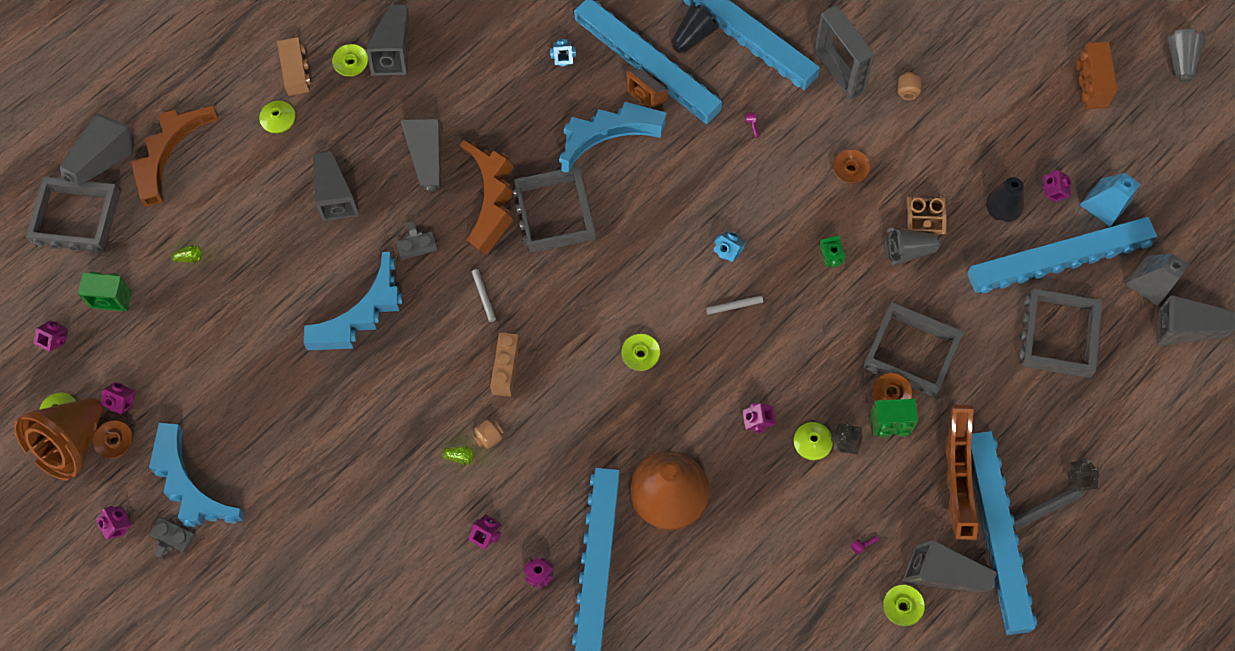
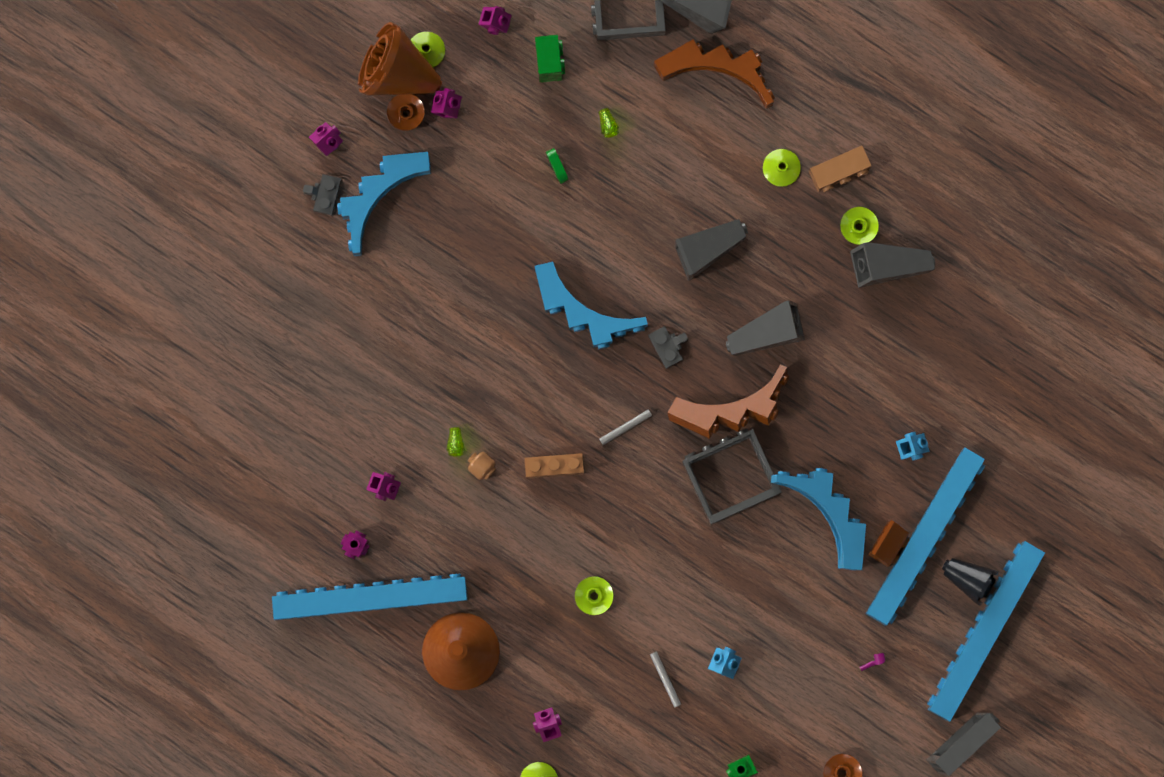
camera: 80 degrees right, 15 degrees up
(212, 308) = (557, 165): none -> green beam

